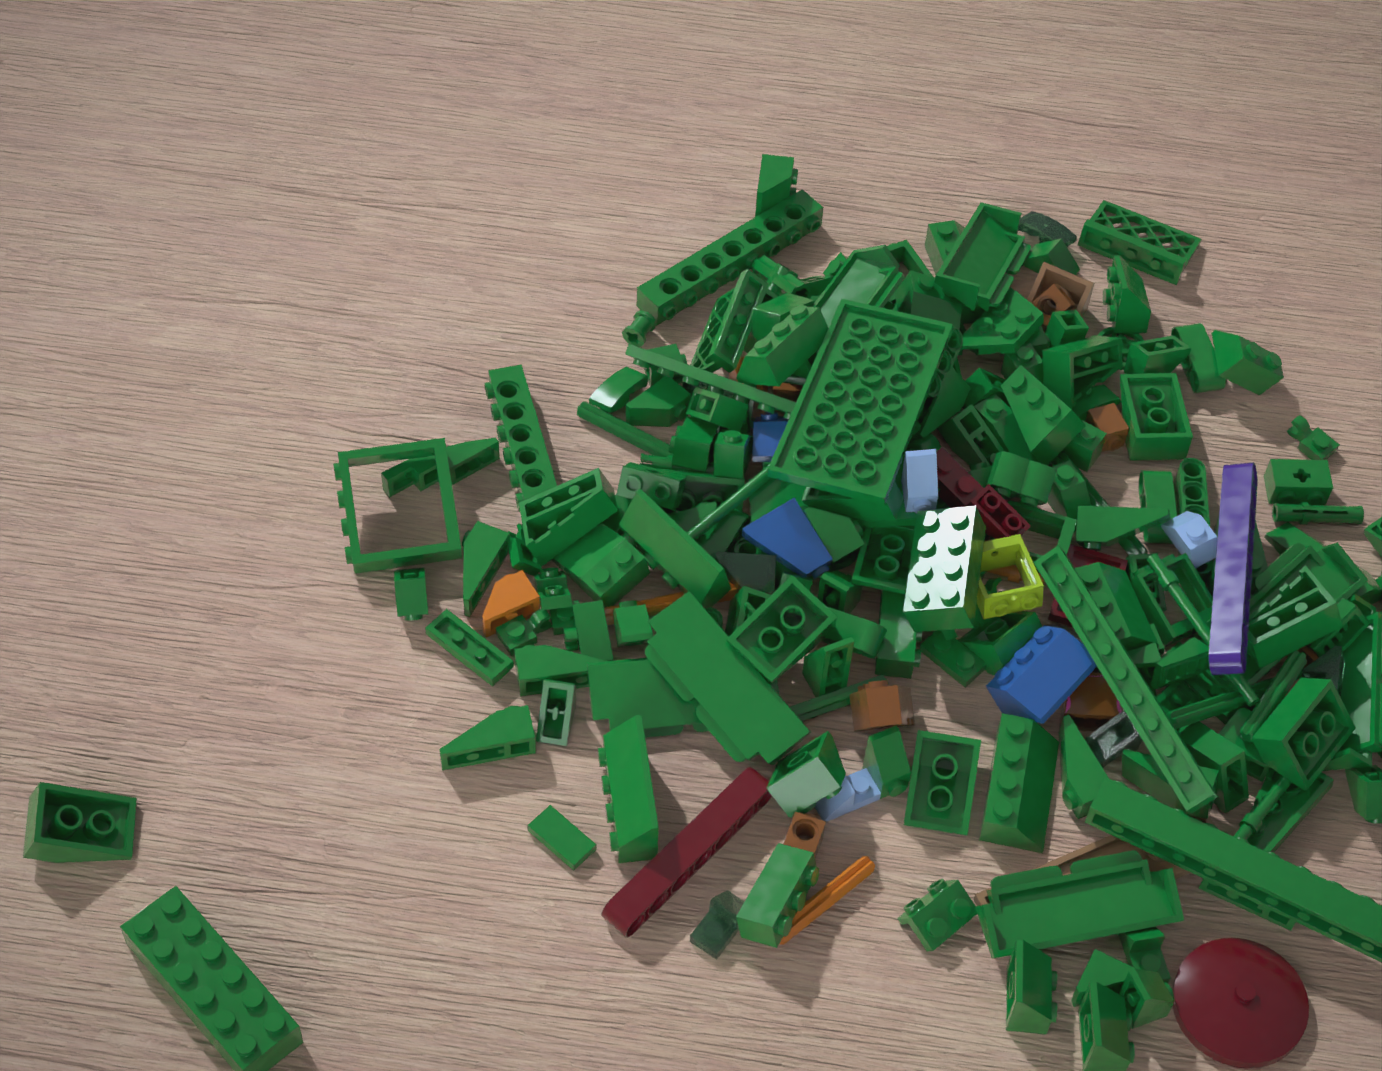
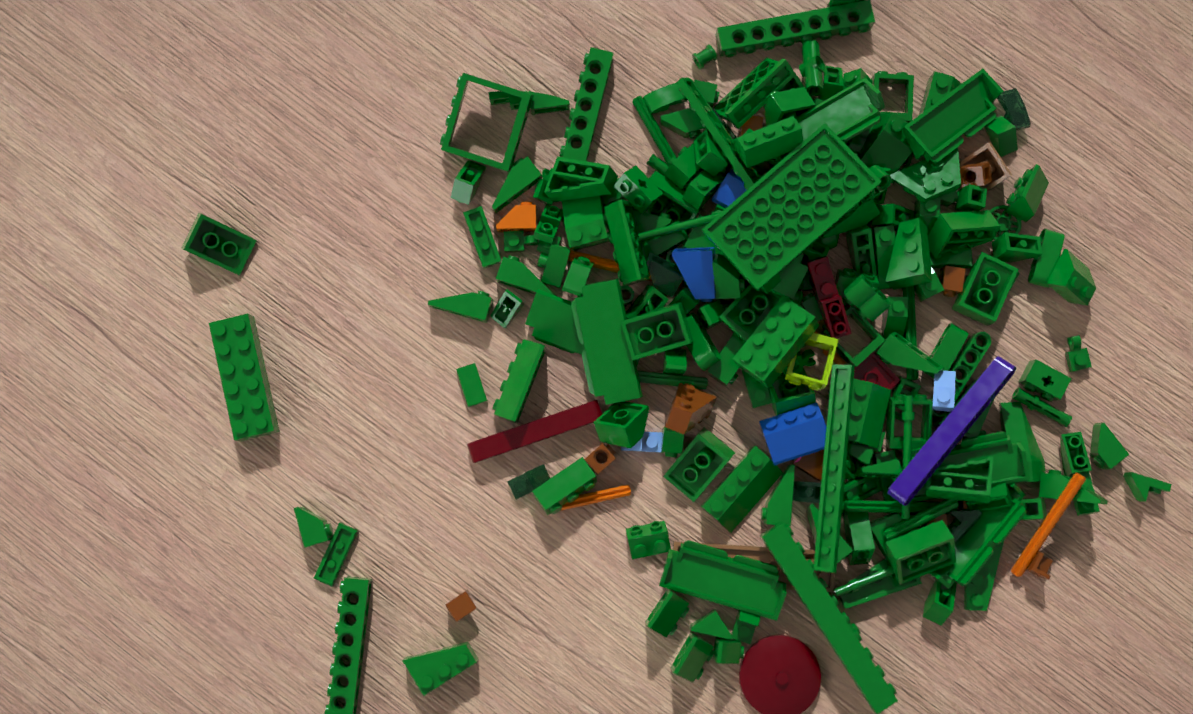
camera: 30 degrees right, 30 degrees up
(920, 480) = (794, 279): light blue slope -> none
(1139, 253) = (1061, 154): green fence -> none

